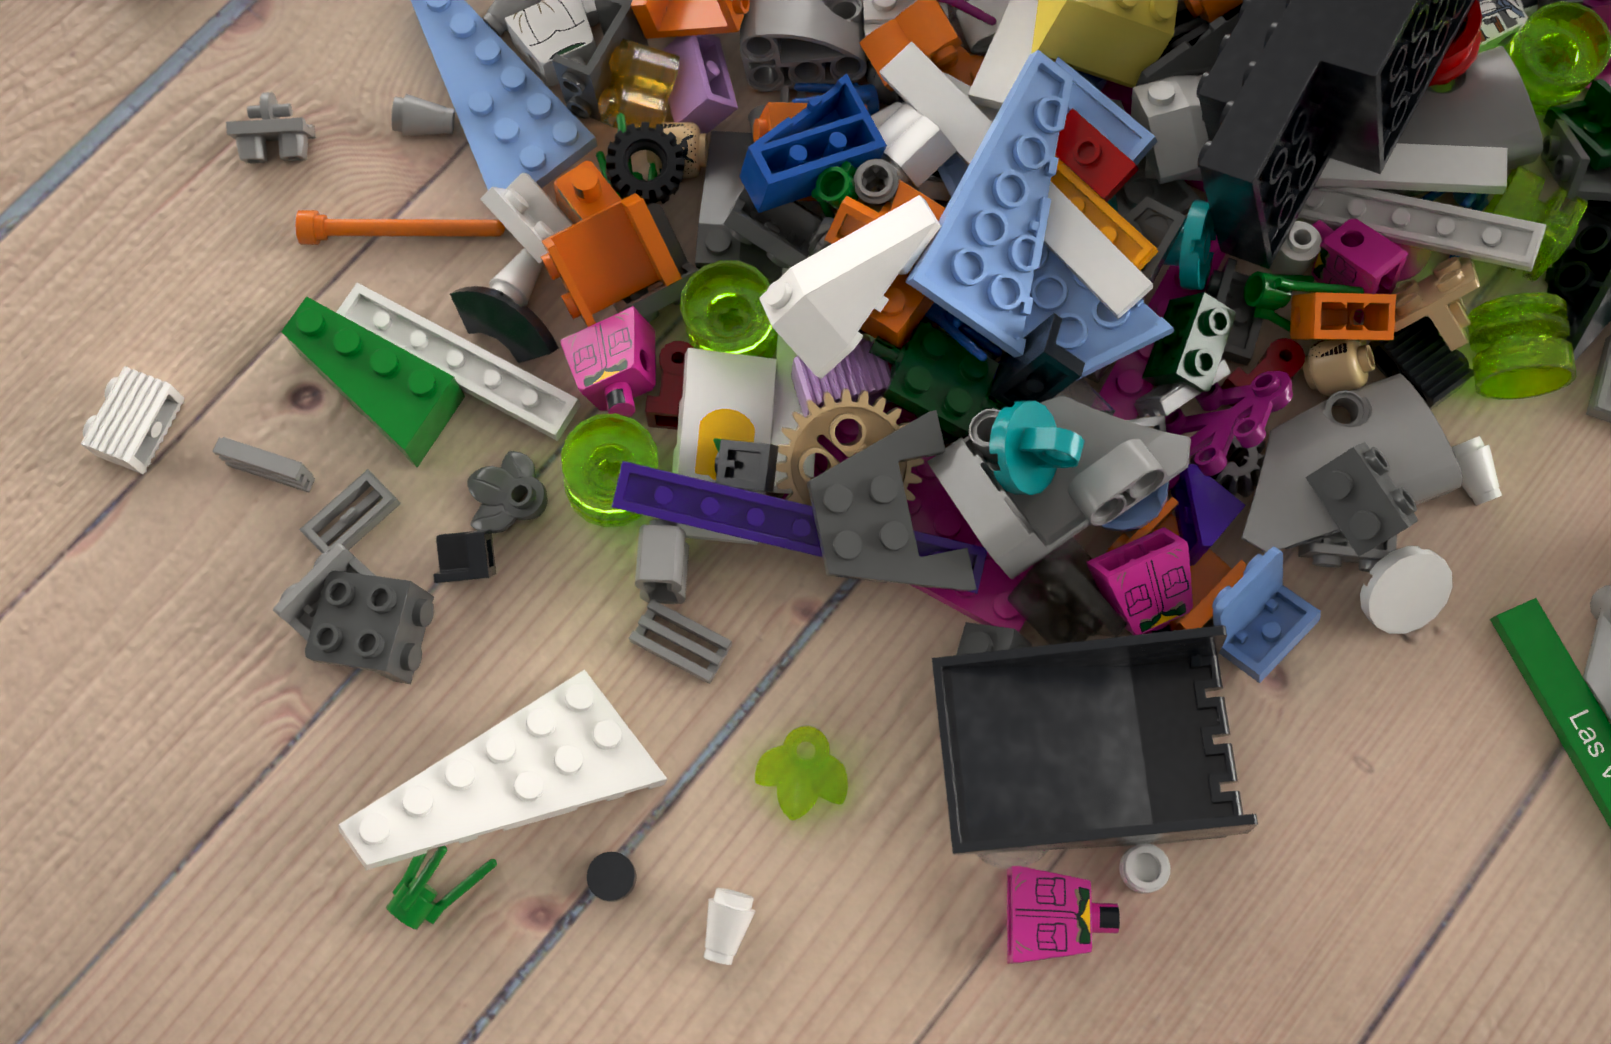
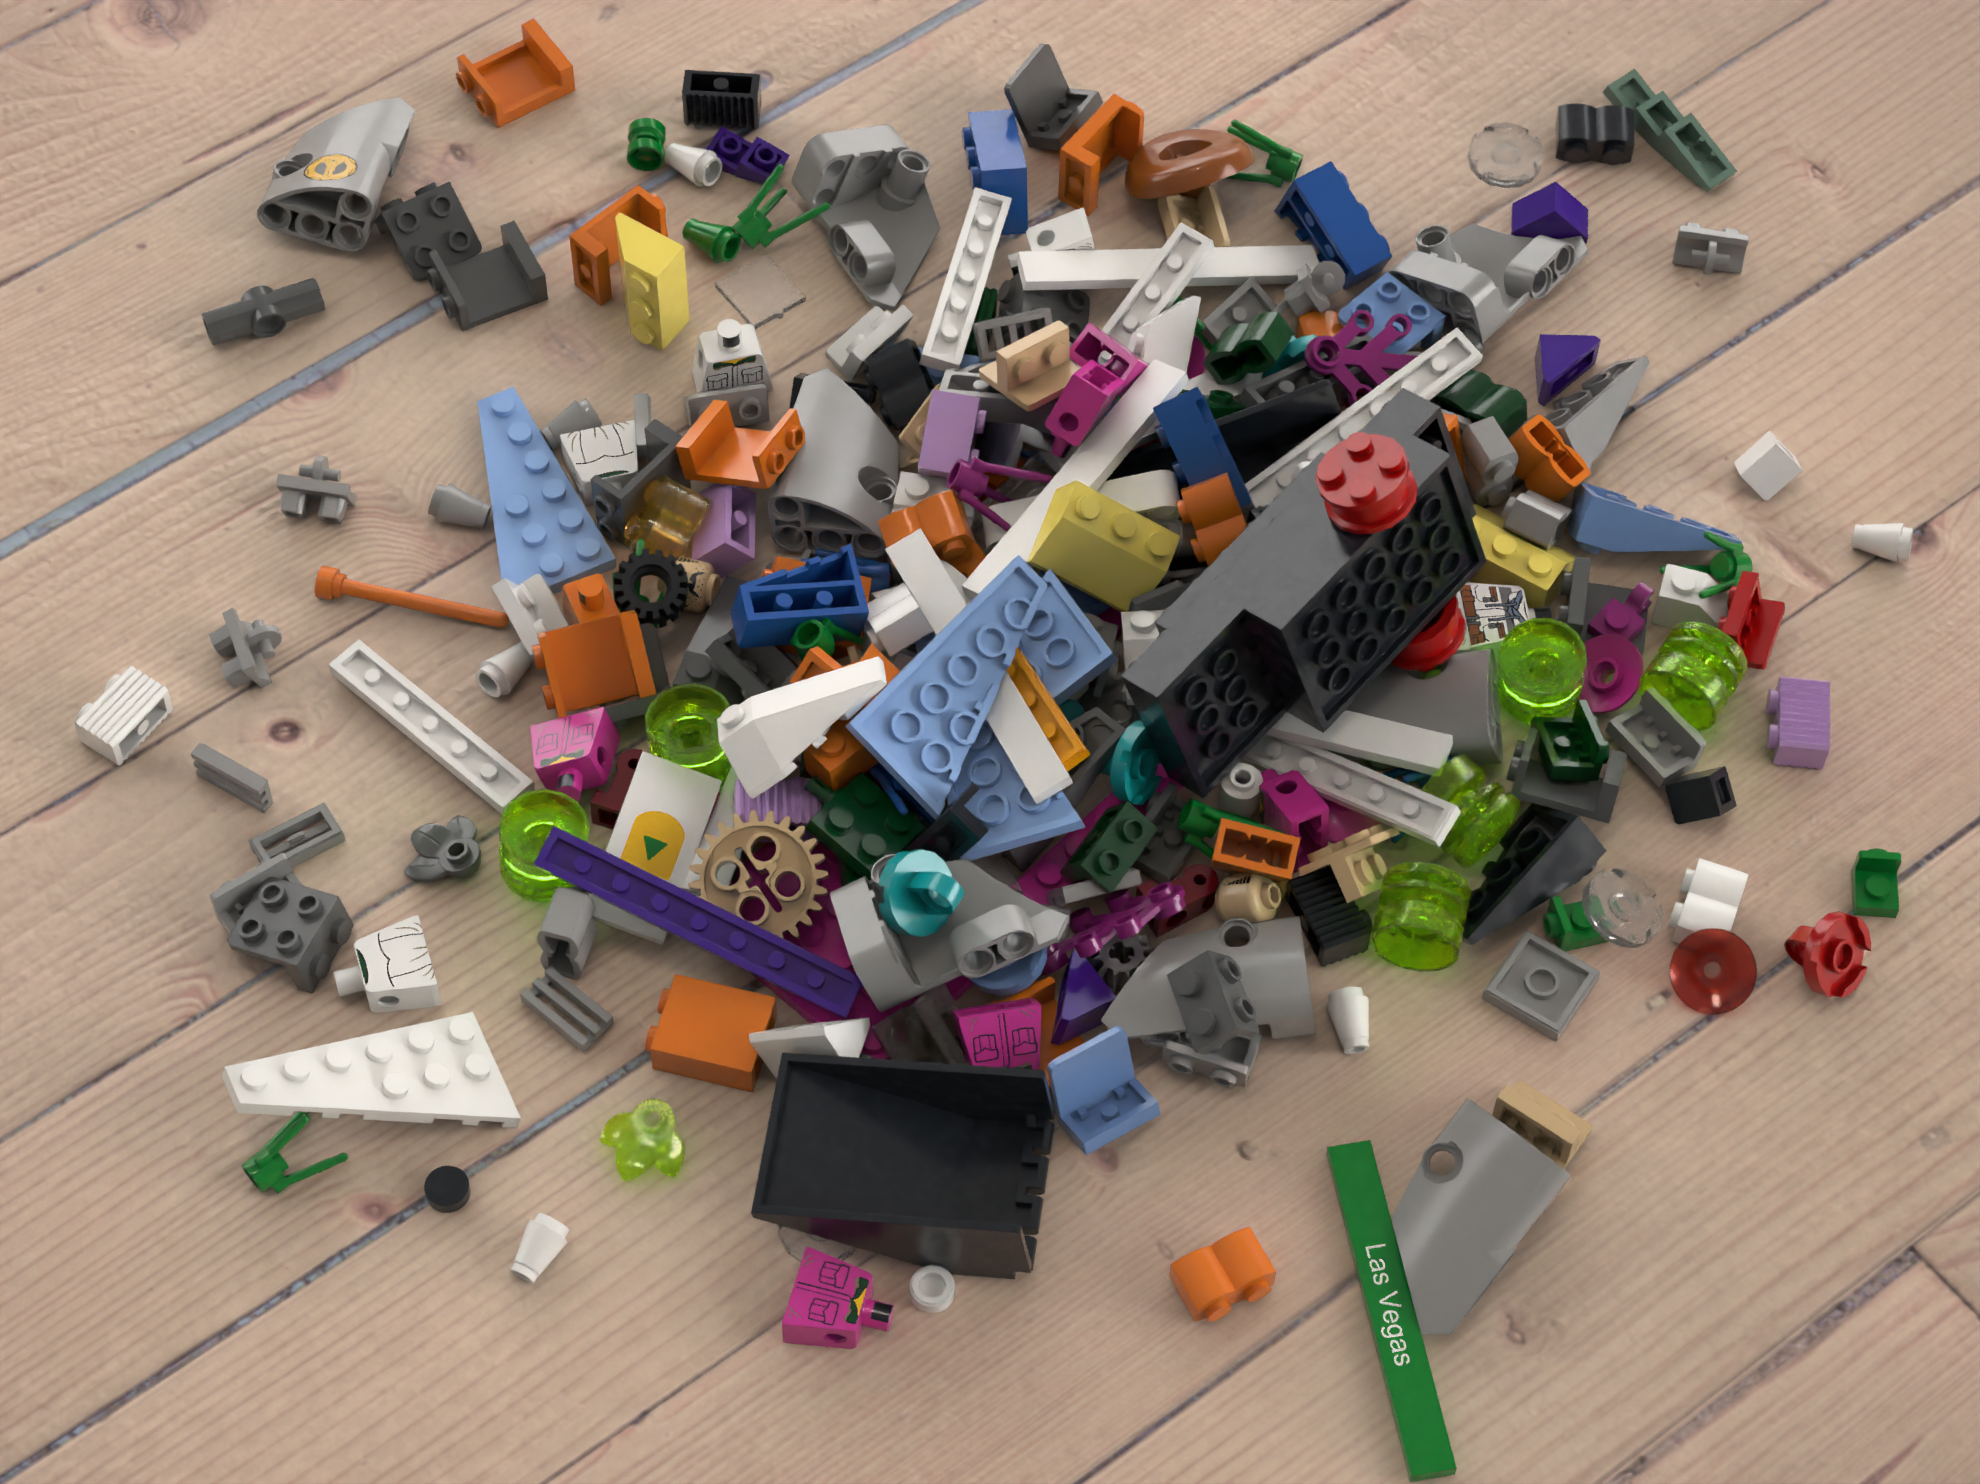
camera: 10 degrees right, 15 degrees down
(247, 313) = (252, 645): none -> light grey hips
(382, 381) = (357, 727): green wedge -> none
(465, 556) = (392, 893): black panel -> none
(487, 642) = (392, 969): none -> white torso
(515, 326) = (485, 699): black tile -> none
(746, 465) = (666, 857): black bracket -> none
(839, 636) = (708, 1031): none -> orange brick
(867, 519) = (759, 923): dark grey wing -> none
(874, 173) = (849, 641): light grey cone -> none
(951, 628) = (828, 1038): none -> white slope
(1093, 156) = (1052, 659): red plate -> none
(1406, 590) = (1243, 1102): white tile -> none
(1440, 786) = (1222, 1275): none -> orange brick

